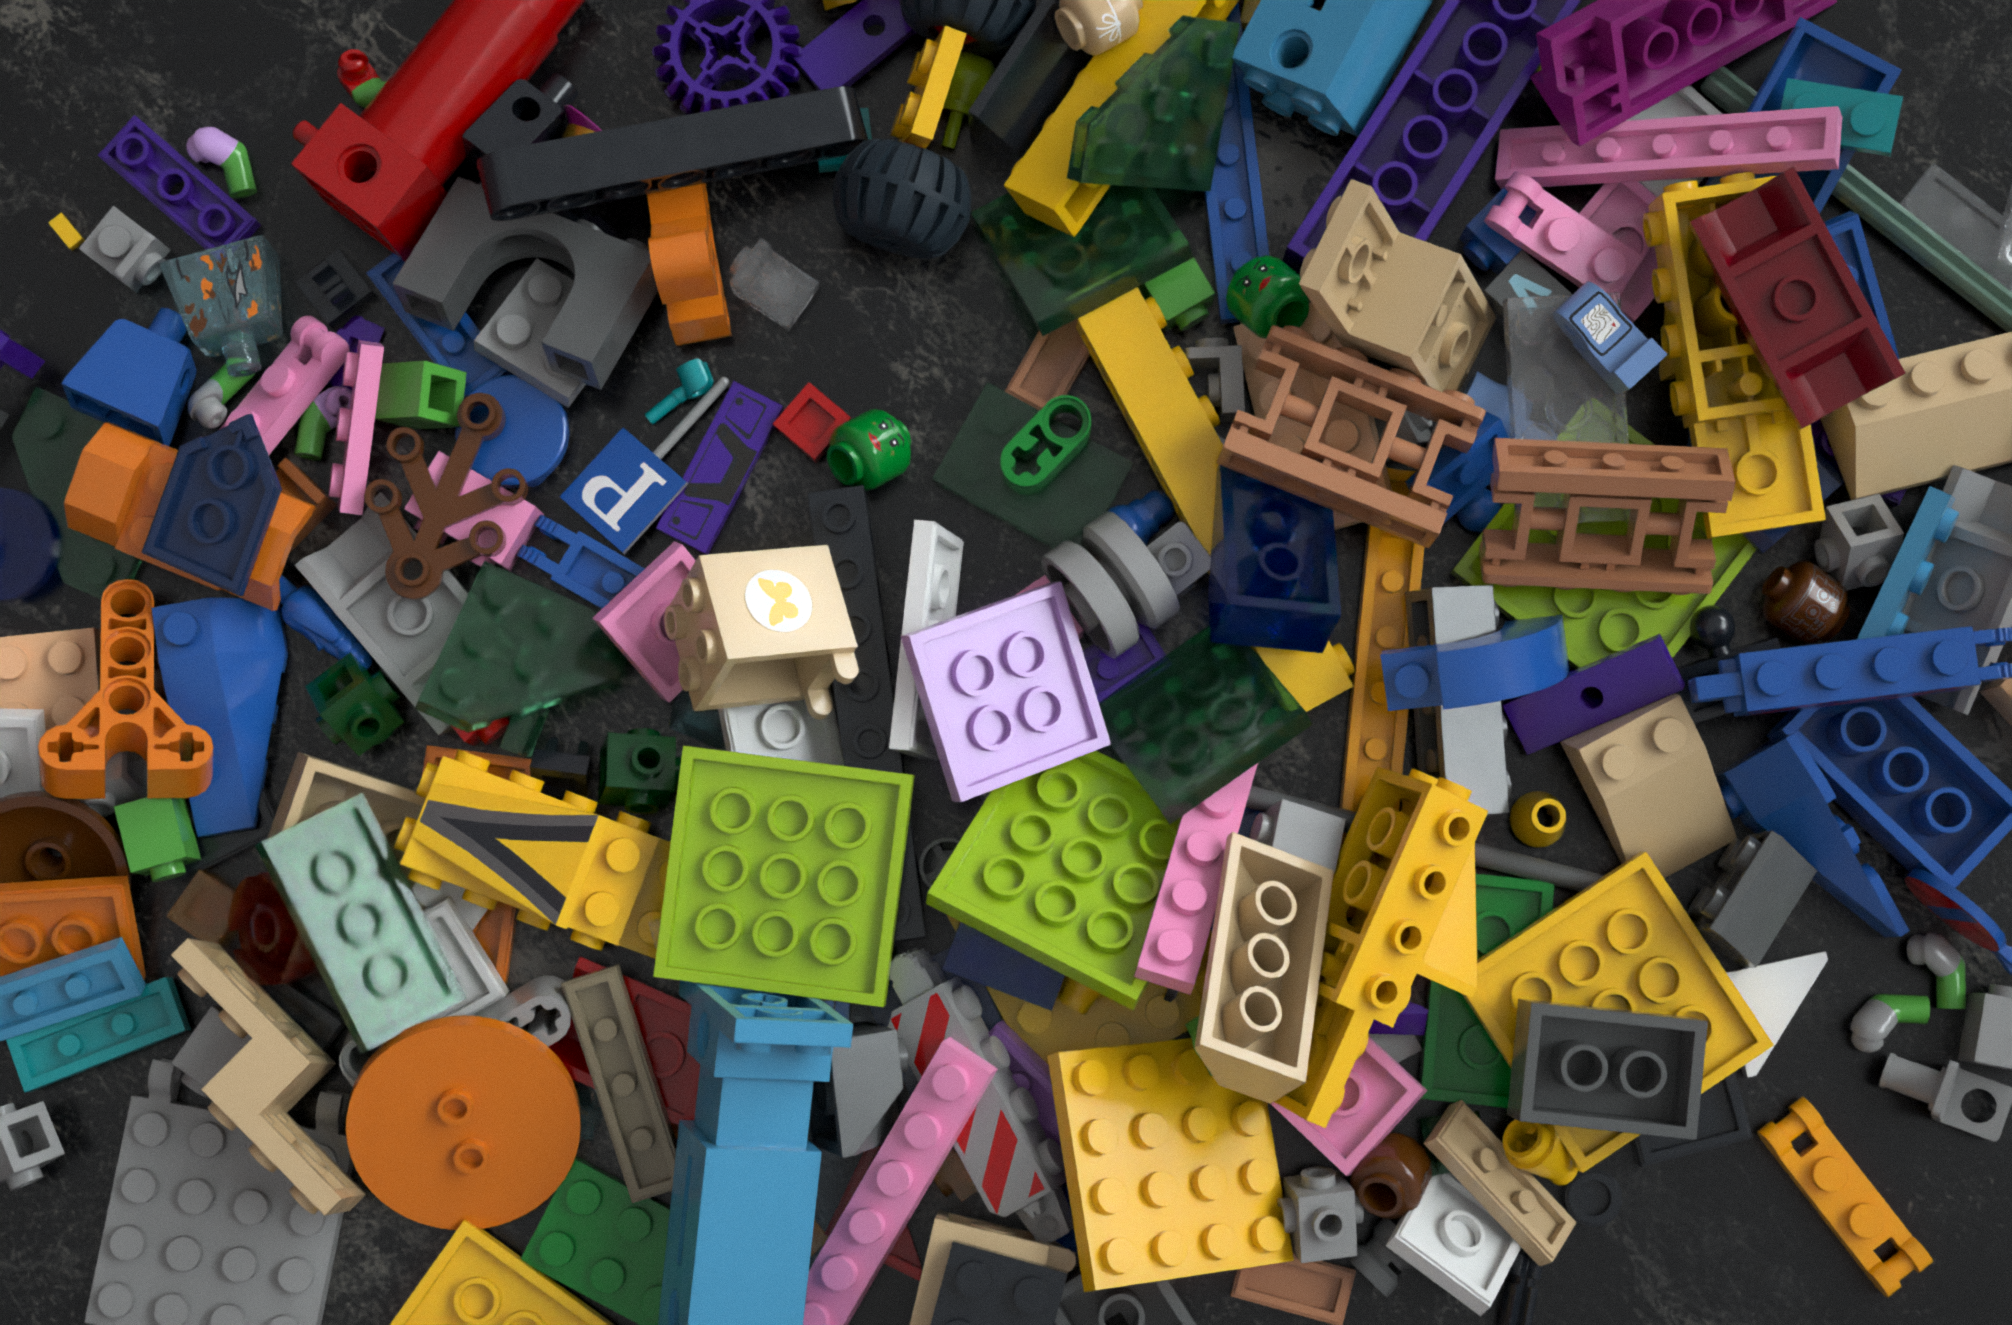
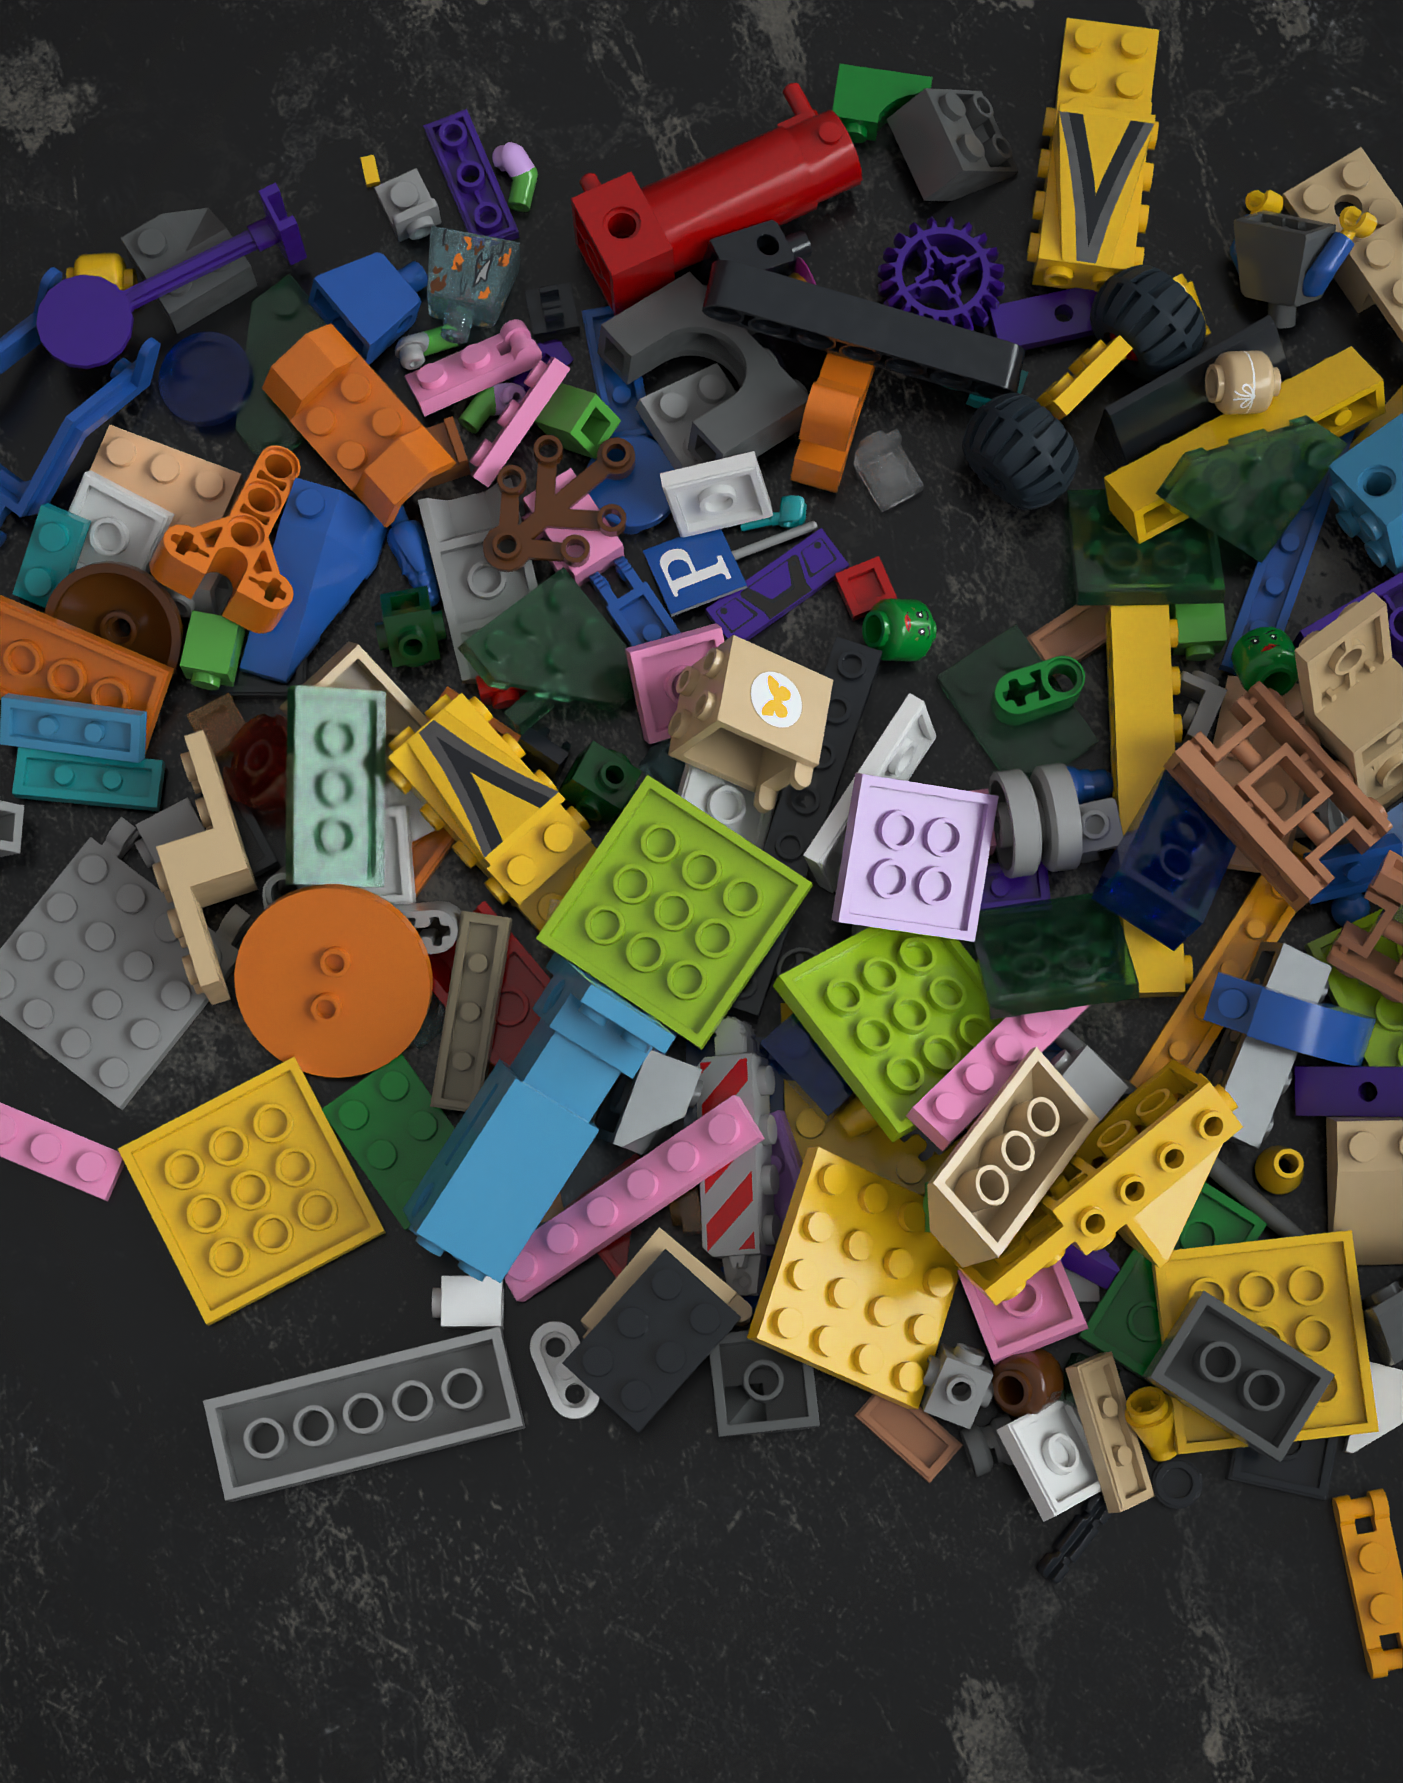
camera: 20 degrees right, 5 degrees down
(216, 506) = (385, 424): dark blue tile -> none
(358, 77) = (650, 162): red arm -> none
(606, 403) = (716, 494): none -> white tile
(967, 82) = (1113, 387): lime piece -> none

